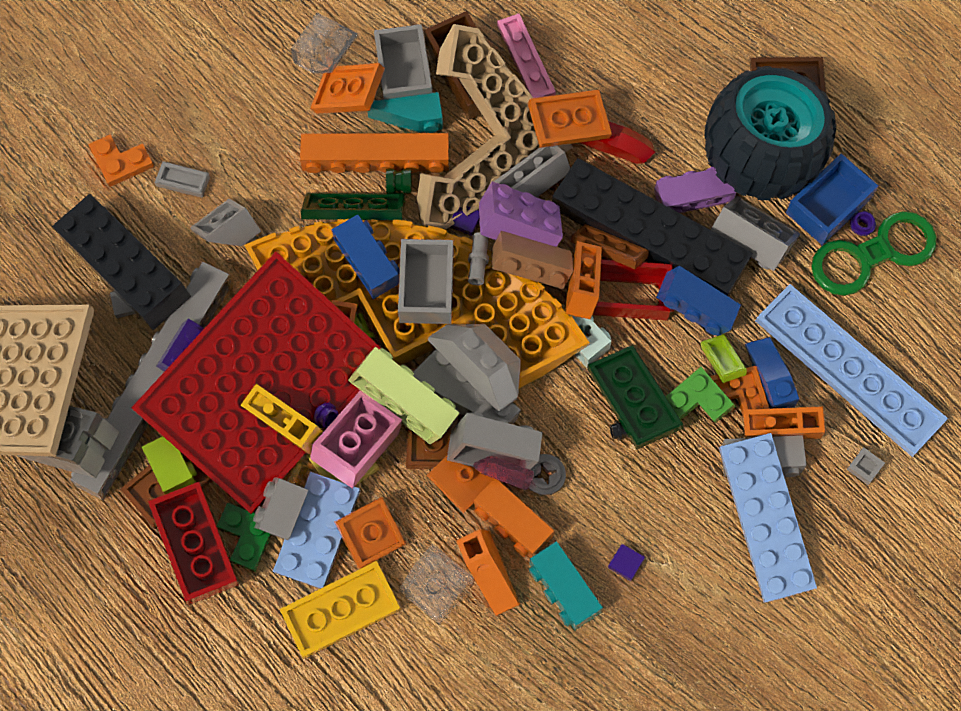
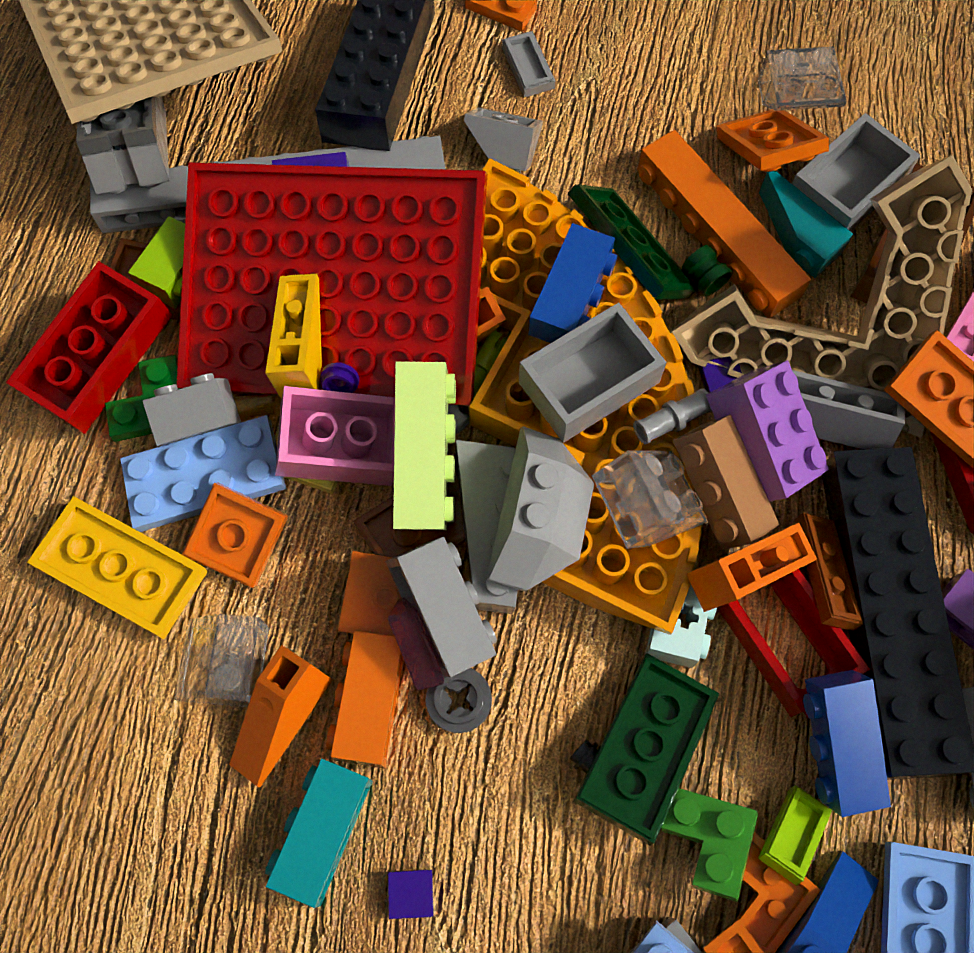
camera: 55 degrees right, 0 degrees up
(514, 301) = (649, 497): none -> clear slope

